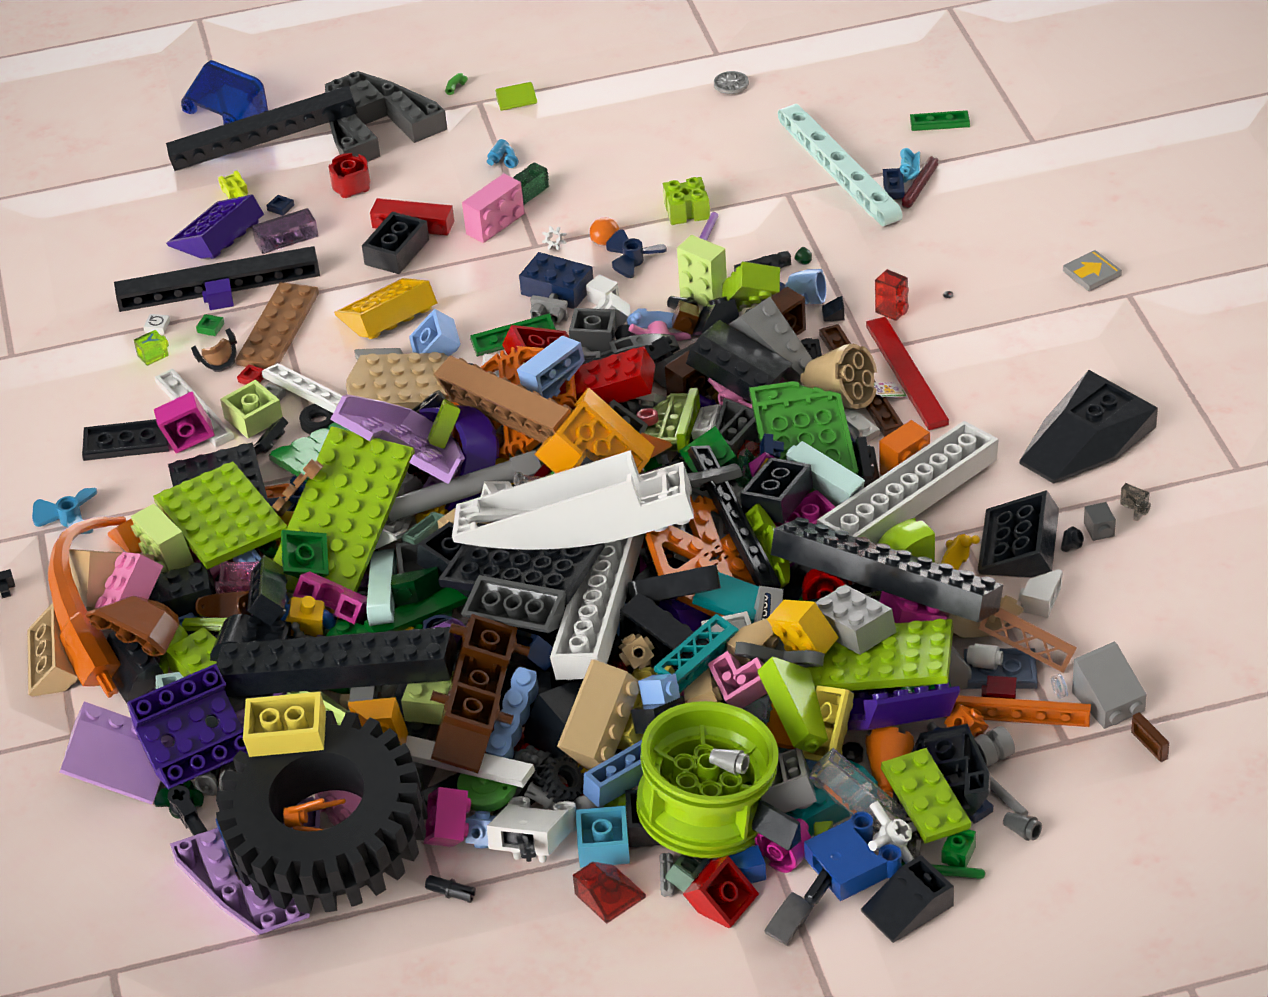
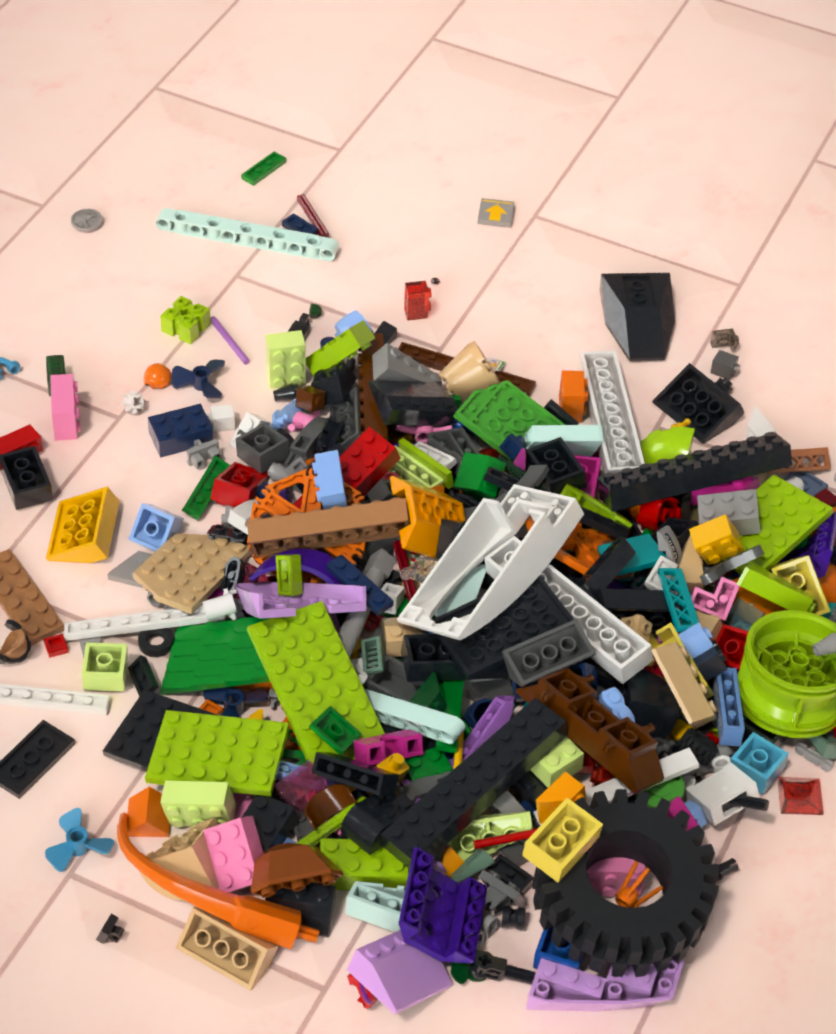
camera: 55 degrees left, 5 degrees up
(184, 422) = (77, 710): dark pink brick -> none
(311, 470) = (250, 711): medium nougat plant -> none
(475, 464) = (348, 574): none -> dark blue plate
(907, 373) = (488, 346): red tile -> none
(909, 164) = (291, 206): medium azure hinge -> none

